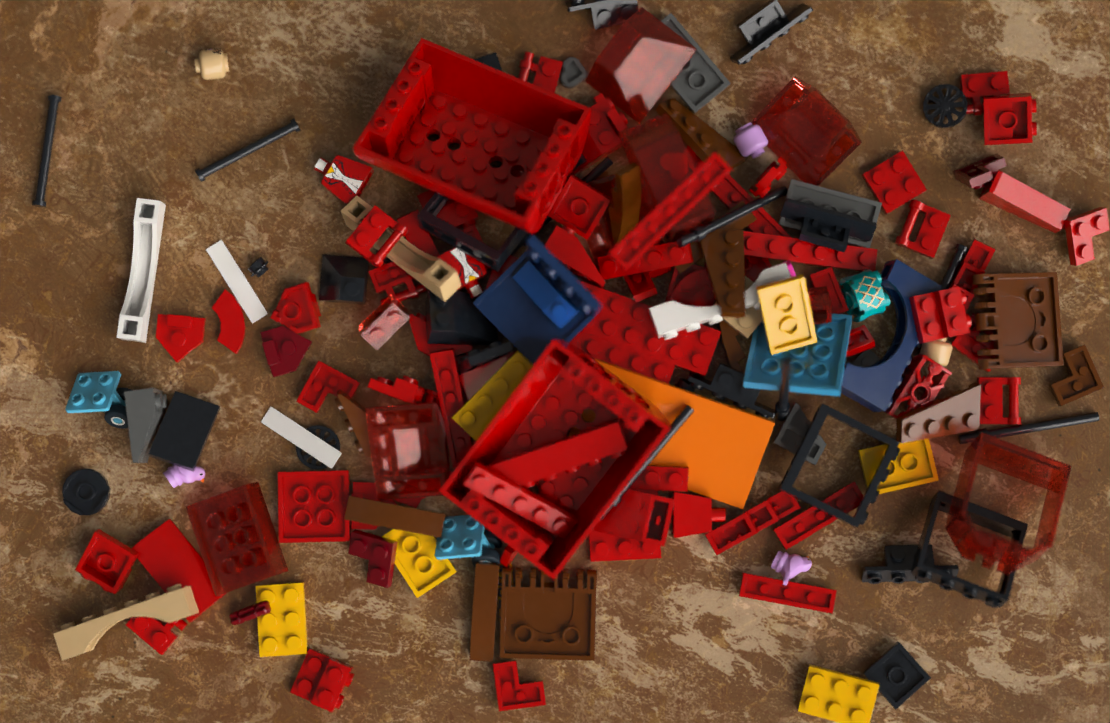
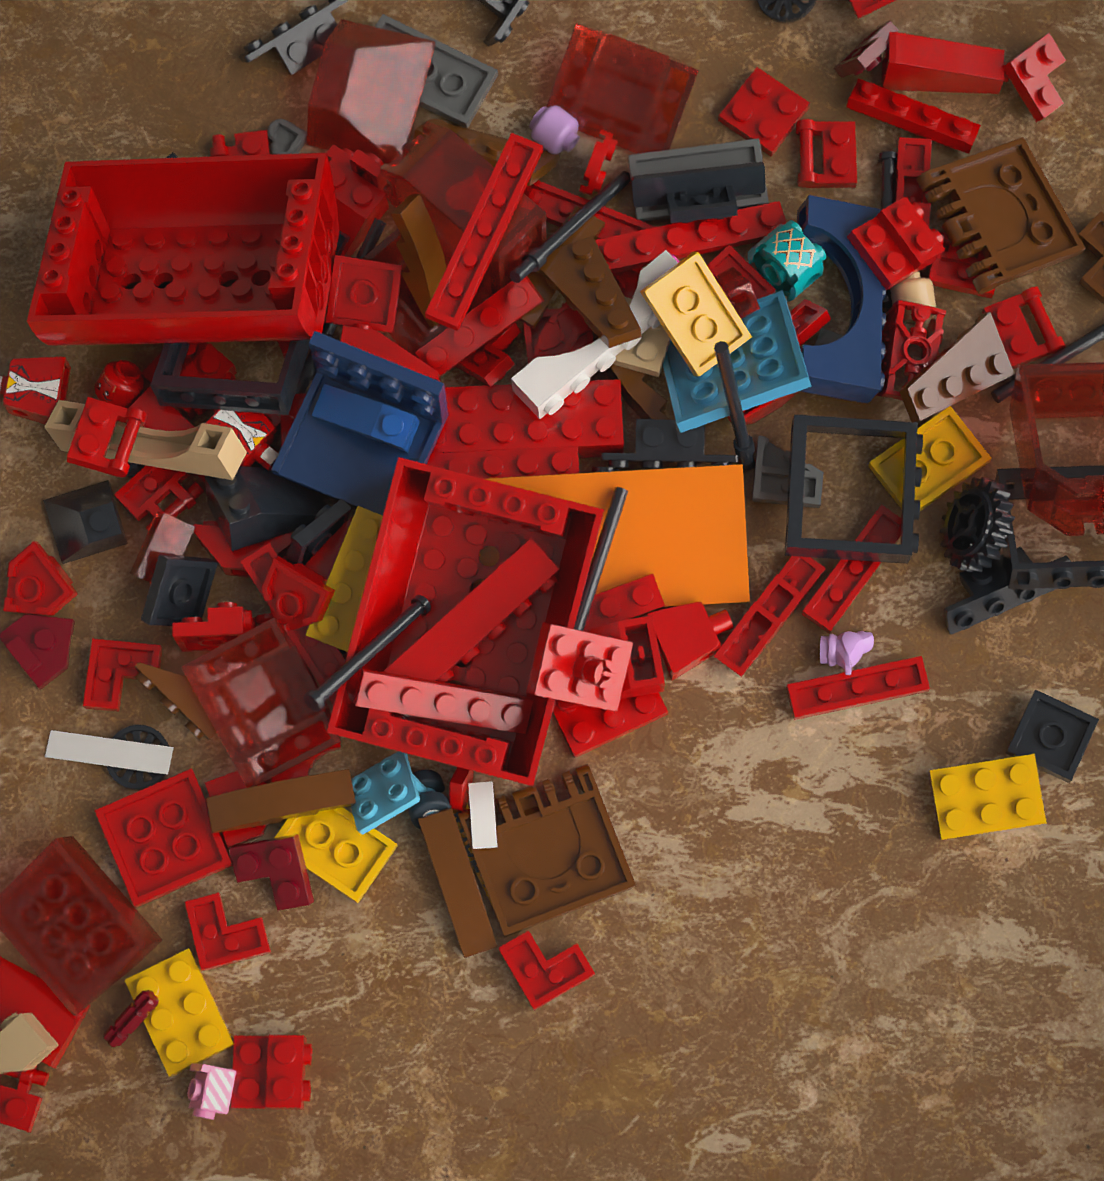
camera: 25 degrees left, 10 degrees down
(281, 677) = (210, 1090): none -> bright pink brick
(321, 586) = (219, 943): none -> red plate
(384, 355) = (178, 589): none -> black plate
(399, 199) = (119, 383): none -> red head
(439, 473) = (316, 698): none -> black bar
(455, 391) = (295, 594): none -> red plate
(516, 577) = (482, 815): none -> white sticker
(613, 518) = (579, 667): none -> plate
(905, 521) = (977, 524): none -> black gear
(991, 227) = (913, 116): none -> red plate

